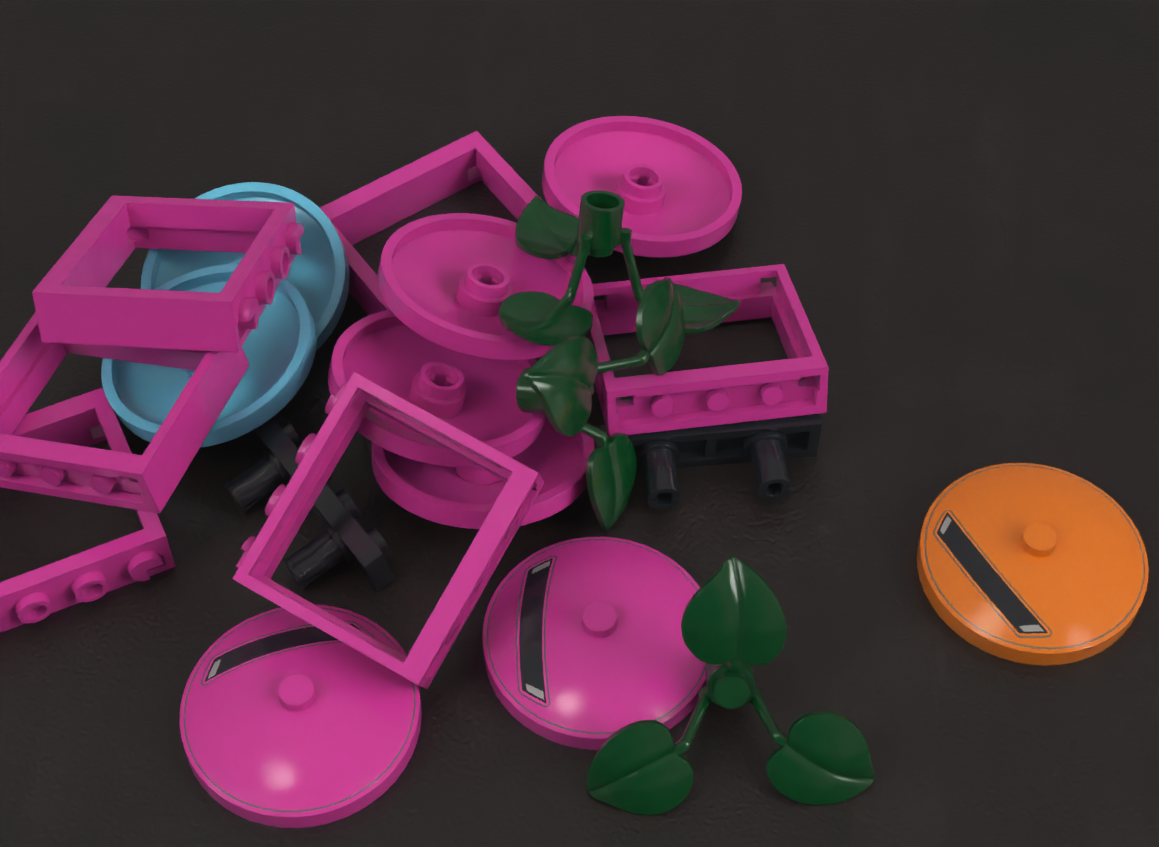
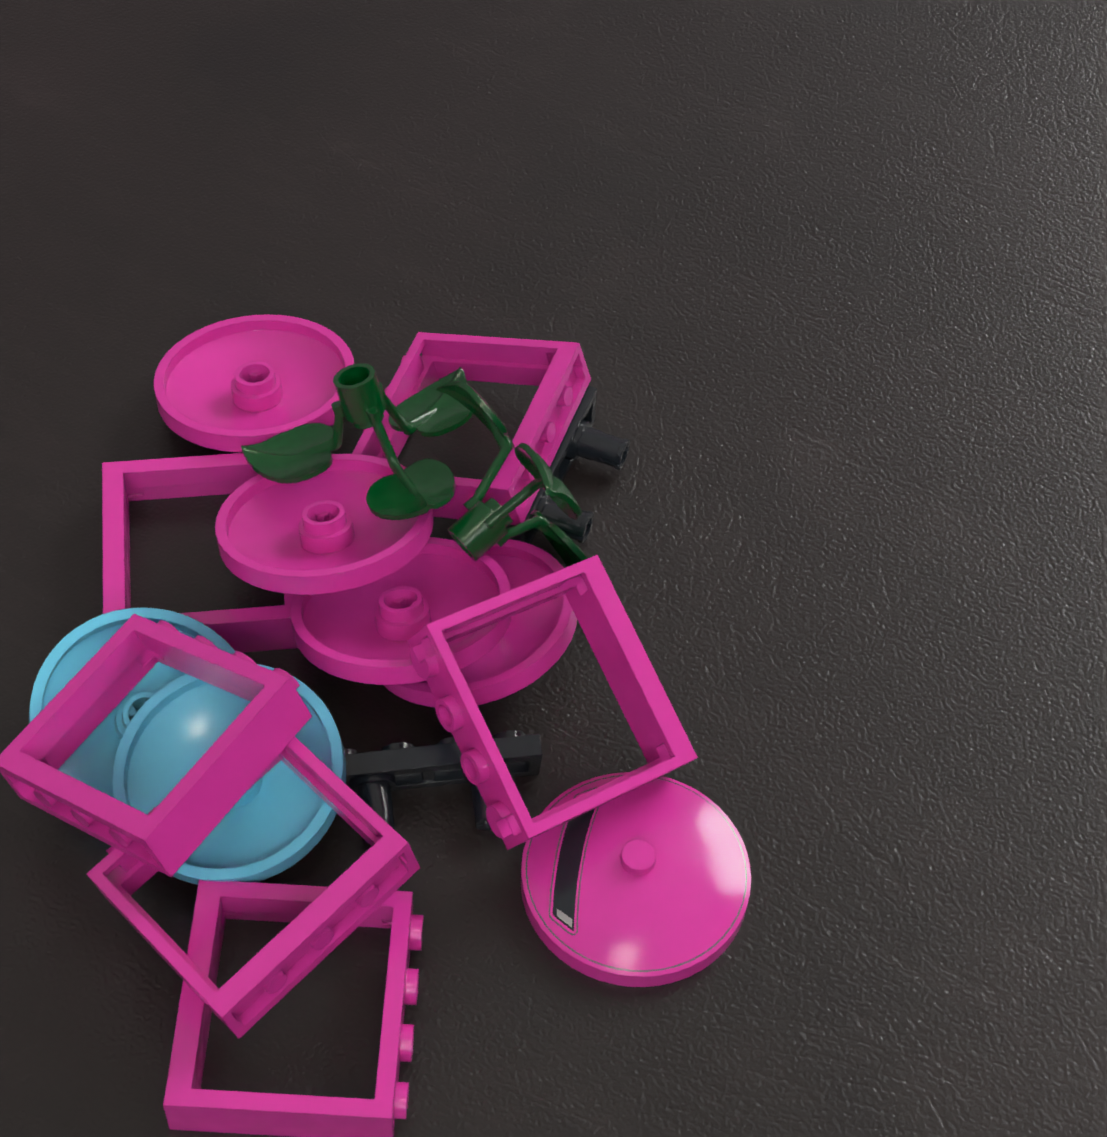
camera: 65 degrees left, 0 degrees up
(592, 640) = (708, 631): dark pink dish -> none
(732, 627) = (795, 511): dark green plant -> none
(1032, 563) = (776, 346): orange dish -> none

